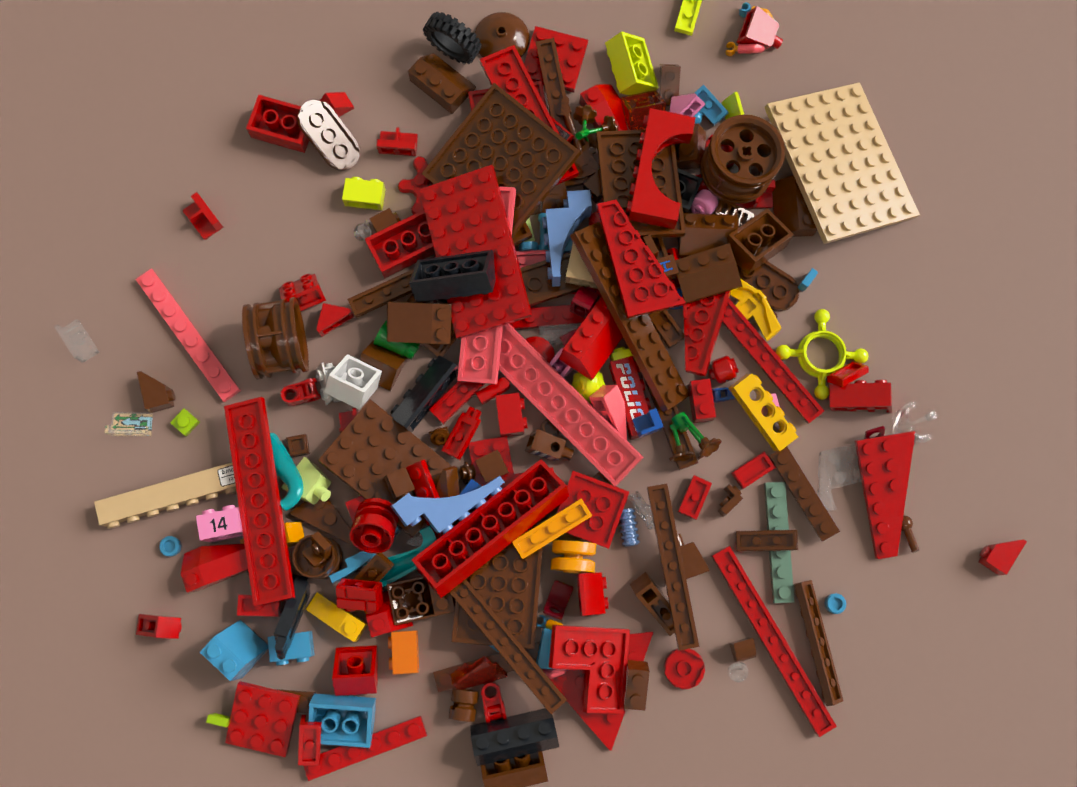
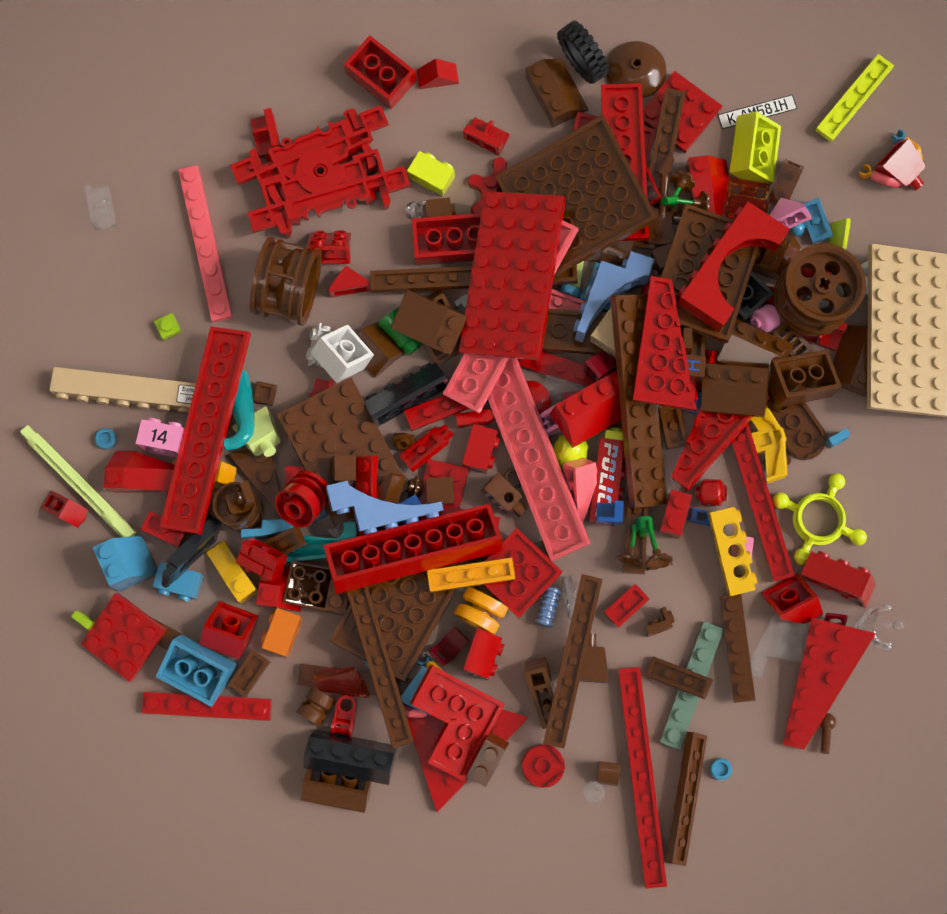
camera: 35 degrees right, 0 degrees up
(130, 424) = (116, 307): clear panel -> none
(155, 394) = (151, 288): reddish brown slope -> none
(161, 597) = (78, 484): none -> yellowish green piece
(259, 250) = (322, 192): none -> red piece
(302, 392) = (290, 343): red piece -> none
(309, 742) = (157, 676): red panel -> none
(328, 134) = (421, 101): tile -> none
(391, 701) = (249, 673): none -> reddish brown plate
(453, 276) = (480, 290): black slope -> none
(628, 26) = (766, 108): none -> white sticker
(753, 470) = (697, 604): red tile -> none
(832, 432) = (793, 600): none -> red slope
(847, 374) = (834, 548): red tile -> none
(1001, 556) = (909, 794): red slope -> none

